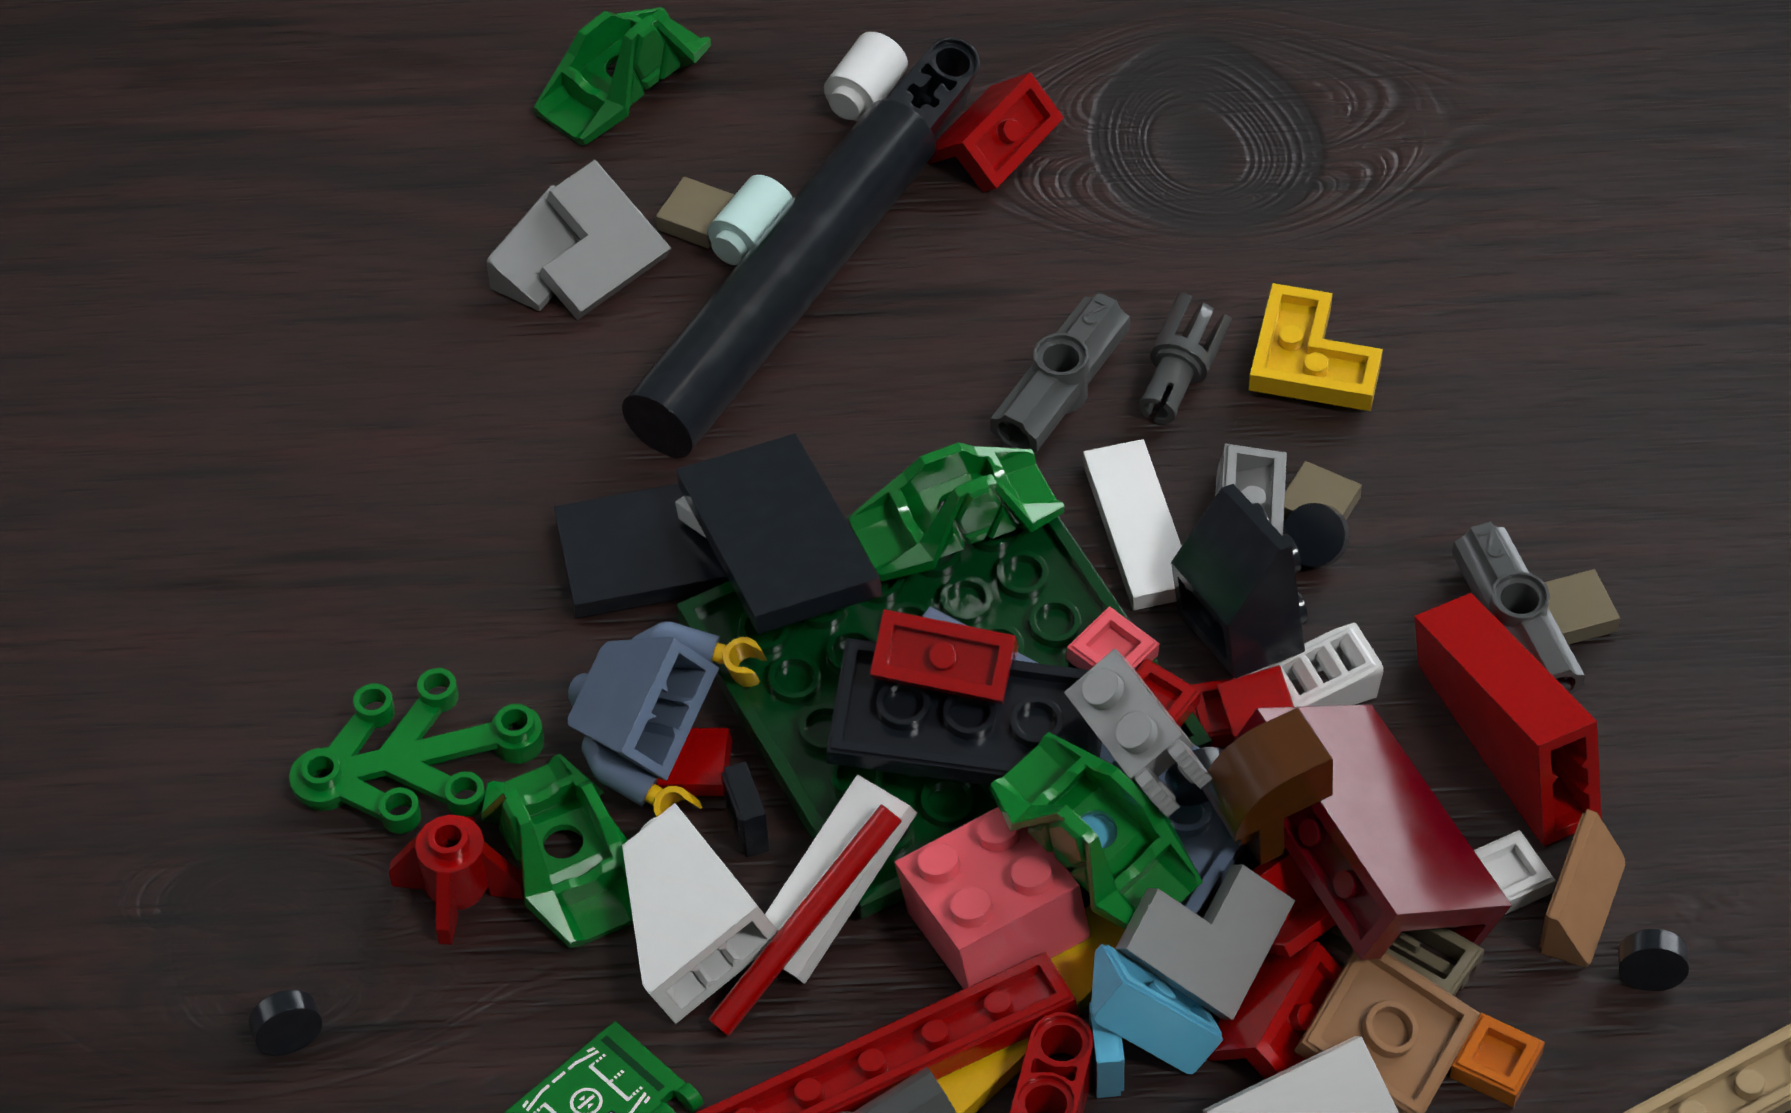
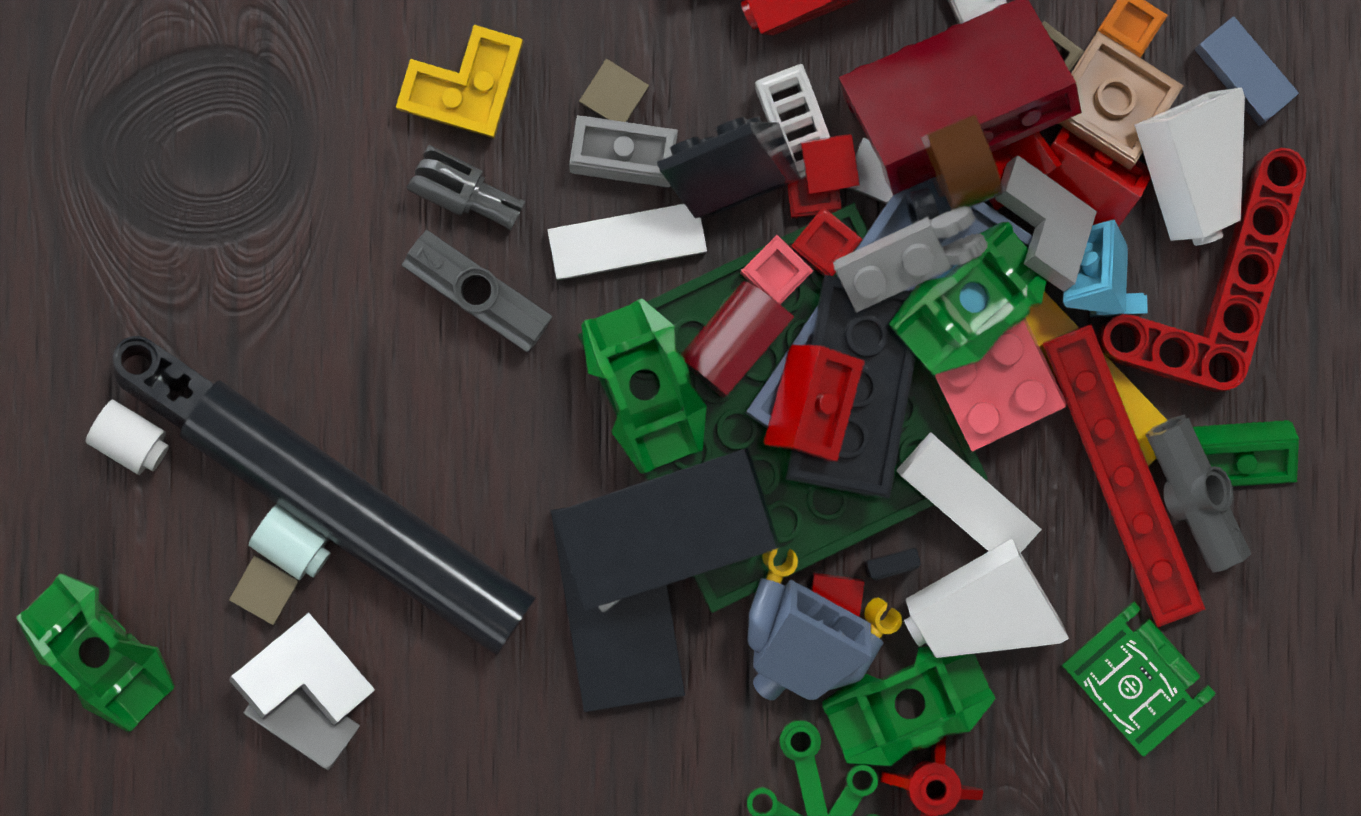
camera: 90 degrees left, 35 degrees up
(804, 920) = (1008, 520): red bar -> none
(999, 130) = (194, 325): red panel -> none
(1016, 601) = (735, 338): none -> dark red brick
(1318, 533) = (657, 100): black tile -> none

